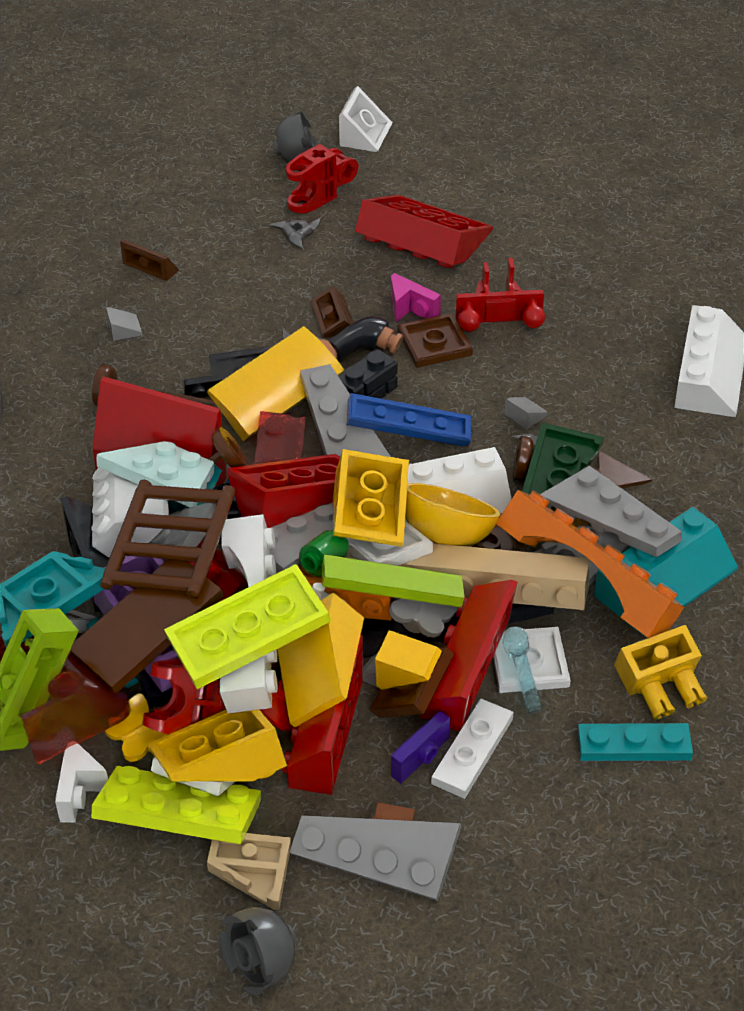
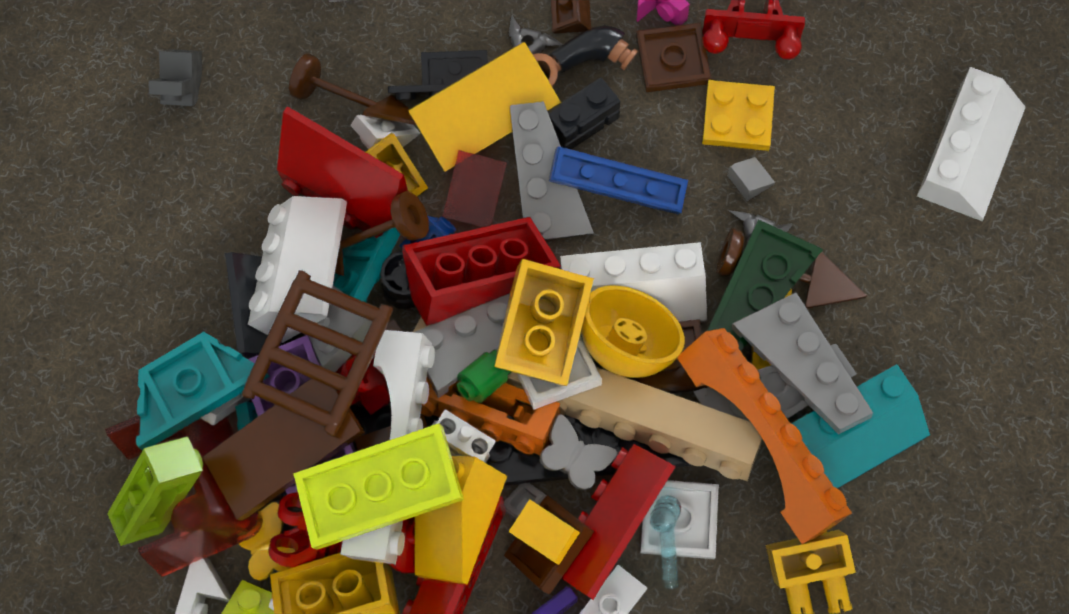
camera: 15 degrees right, 25 degrees up
(161, 465) = (336, 235): light aqua wing -> none
(392, 581) = (547, 429): lime tile -> none
(503, 371) = (738, 115): none -> yellow plate

